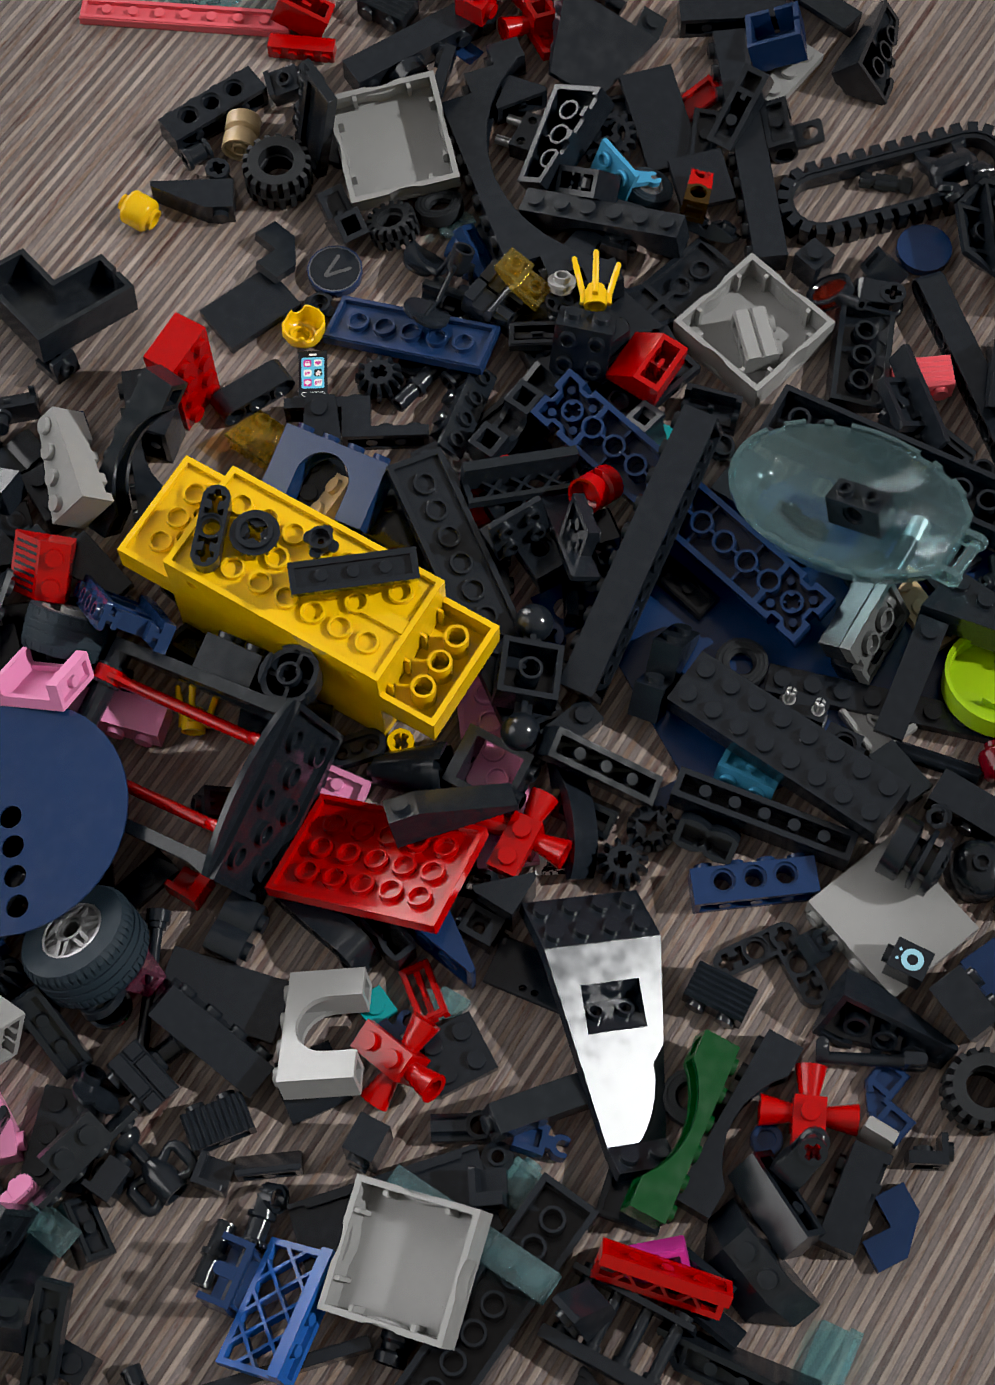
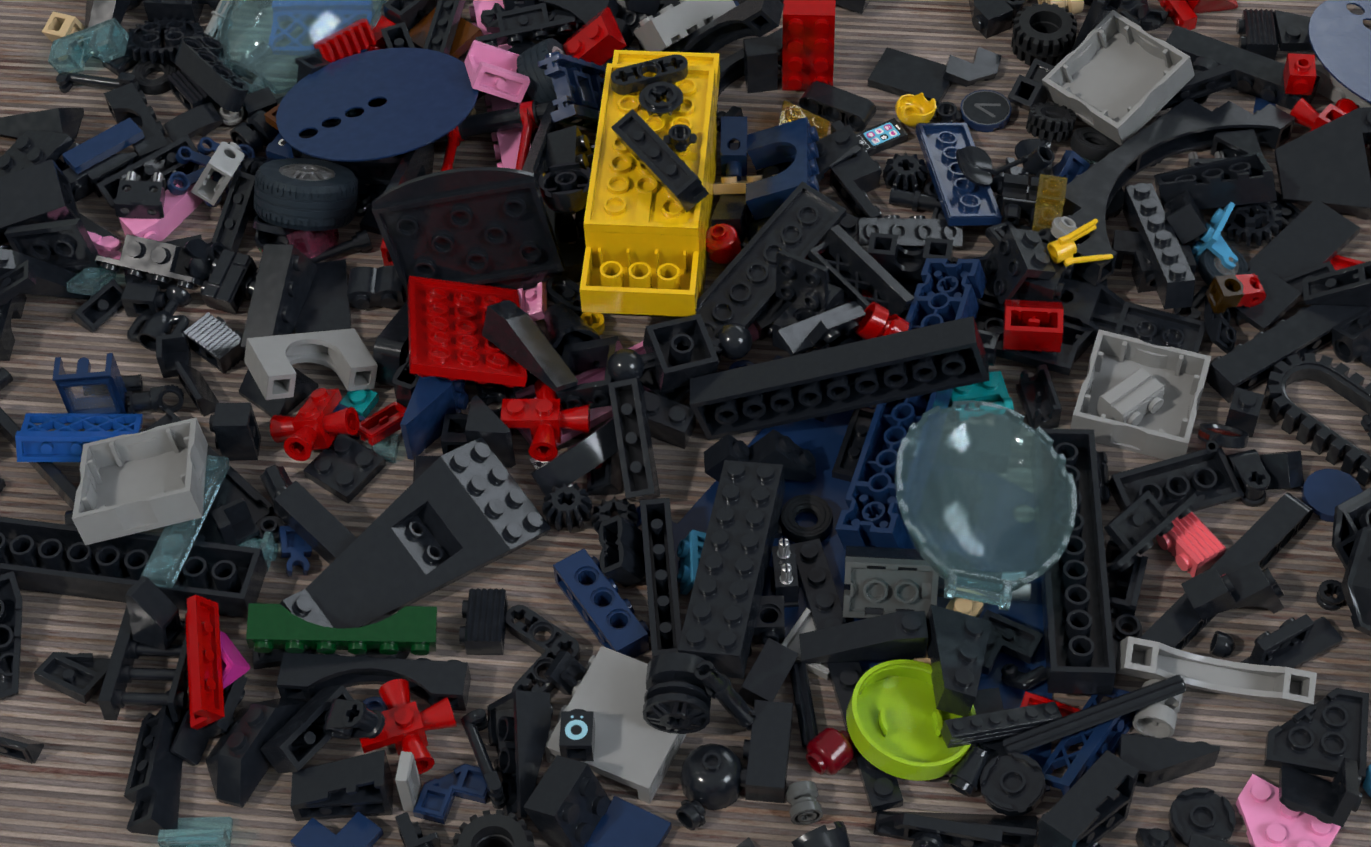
camera: 65 degrees right, 15 degrees down
(860, 508) = (995, 518): black brick -> none

